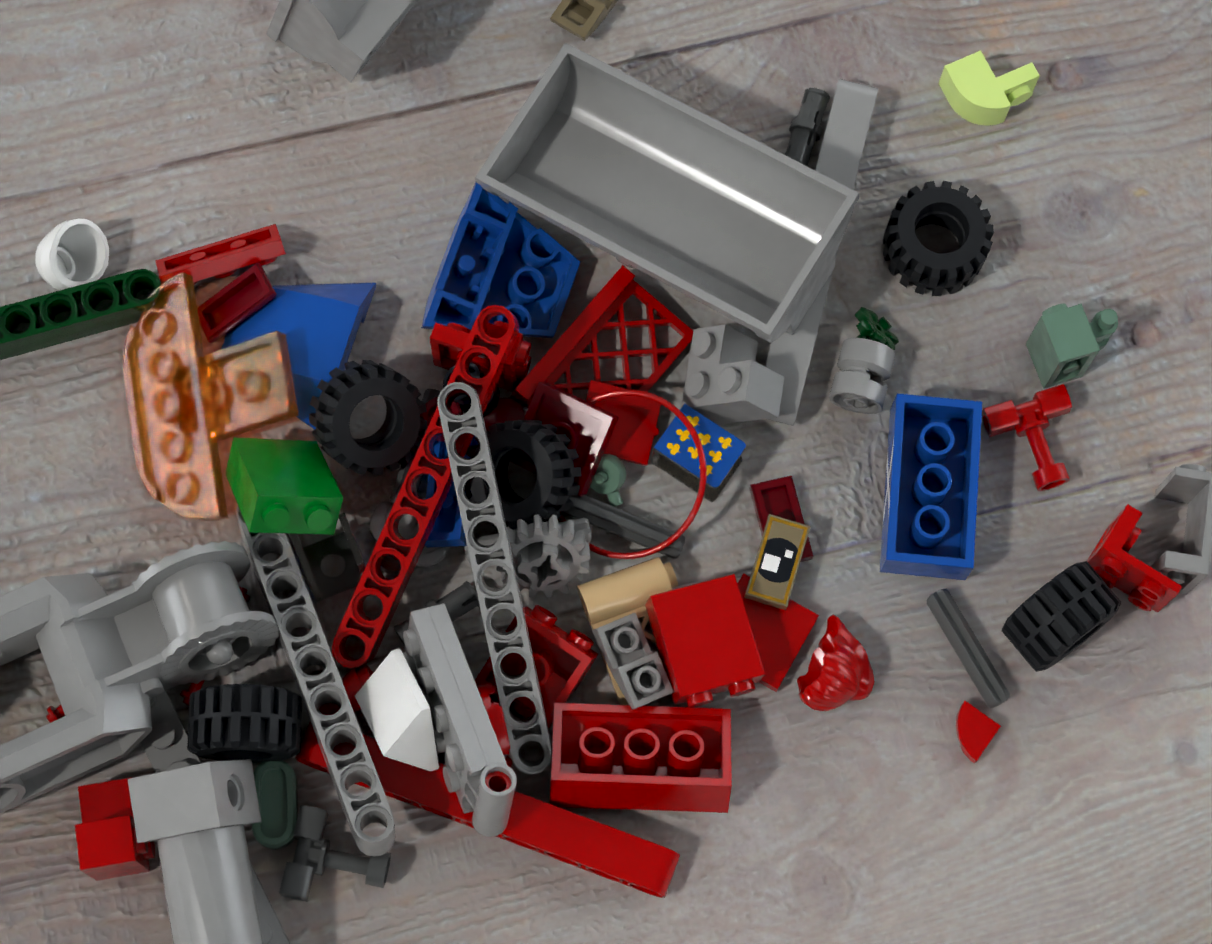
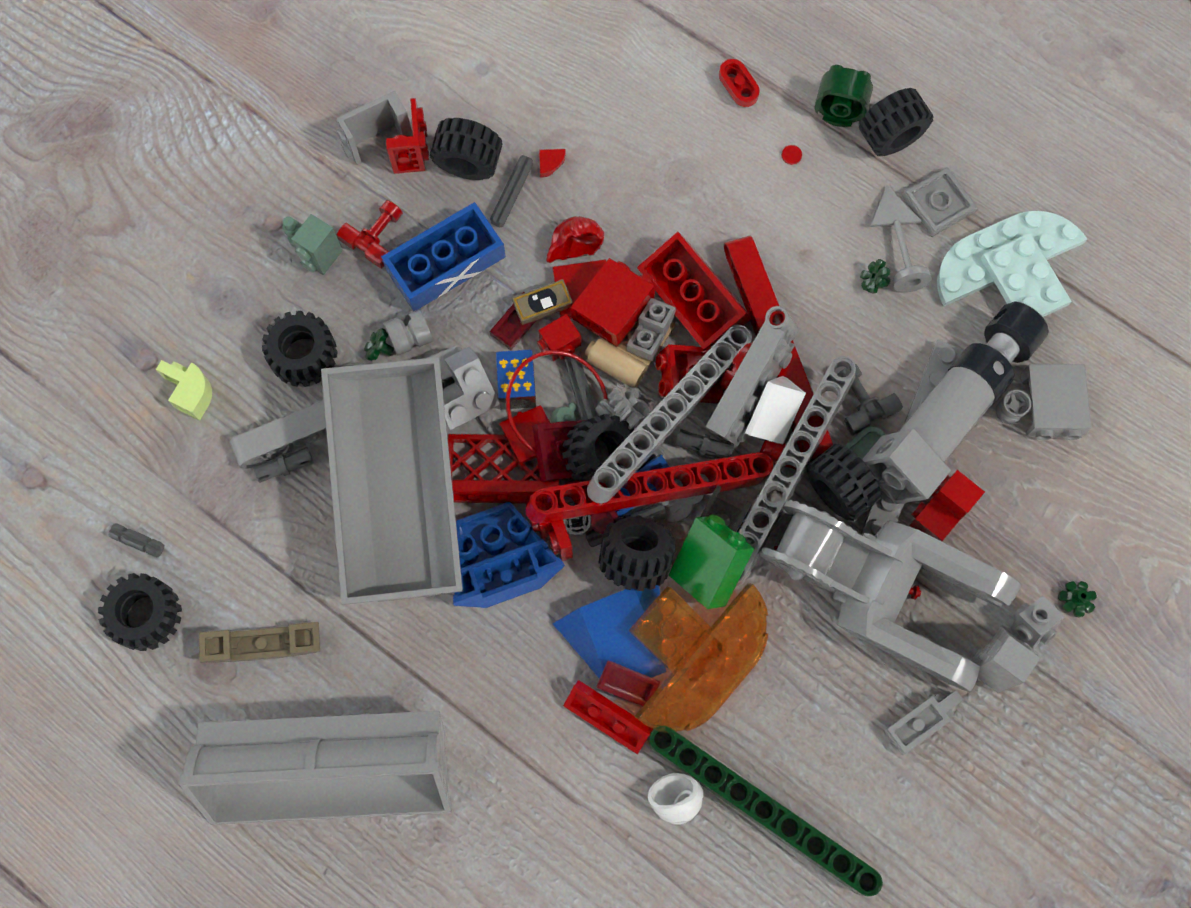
camera: 125 degrees left, 0 degrees up
(712, 546) = (559, 336): none -> red brick

